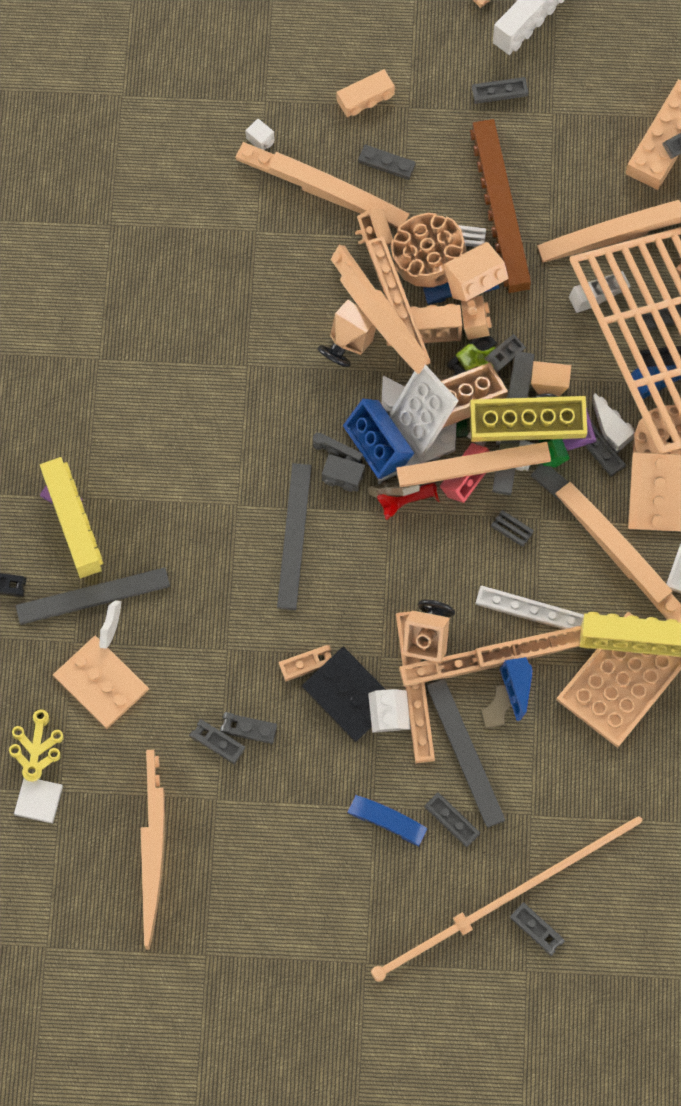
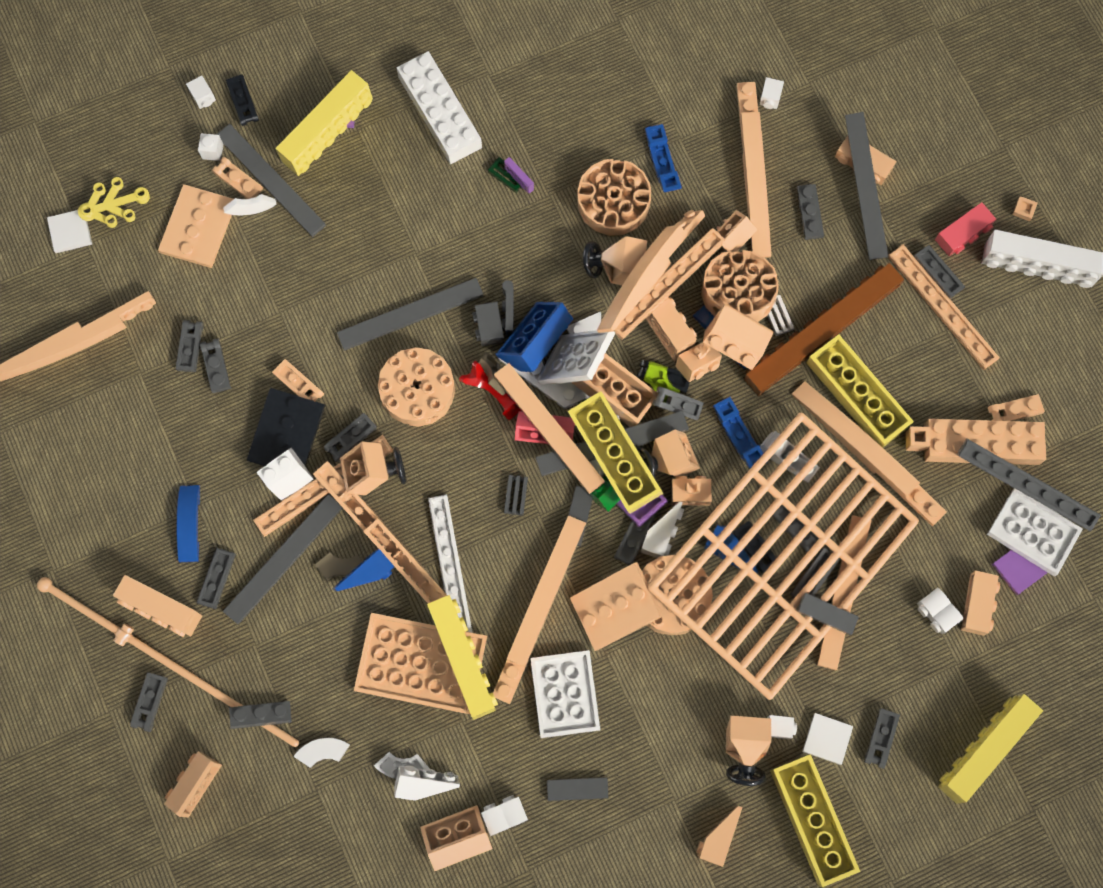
camera: 60 degrees right, 5 degrees up
(31, 632) = (210, 147): none -> white brick
(74, 625) = (237, 179): none -> light nougat plate
(110, 414) = (439, 107): none -> white brick
(218, 378) = (521, 178): none -> medium lavender tile
(224, 390) = (499, 177): none -> dark green tile
(270, 256) = (662, 158): none -> blue slope
(288, 327) = (614, 180): none -> light nougat brick
(374, 579) = (406, 402): none -> light nougat brick
(383, 640) = (350, 436): none -> dark grey plate
(393, 104) = (866, 186): none -> dark grey tile
(455, 877) = (154, 604): none -> light nougat brick
(475, 49) = (965, 230): none -> coral brick
(531, 104) = (943, 307): none -> light nougat tile
(557, 321) = (737, 432): none -> blue slope
(572, 205) = (859, 391): none -> light yellow brick
(588, 381) = (691, 491): none -> light nougat brick
(599, 836) = (260, 715): none -> dark grey plate
(633, 921) = (192, 784): none -> light nougat slope
(638, 182) = (917, 438): none -> light nougat brick
(652, 95) = (1017, 409): none -> light nougat plate
(655, 800) = (322, 749): none -> white tile

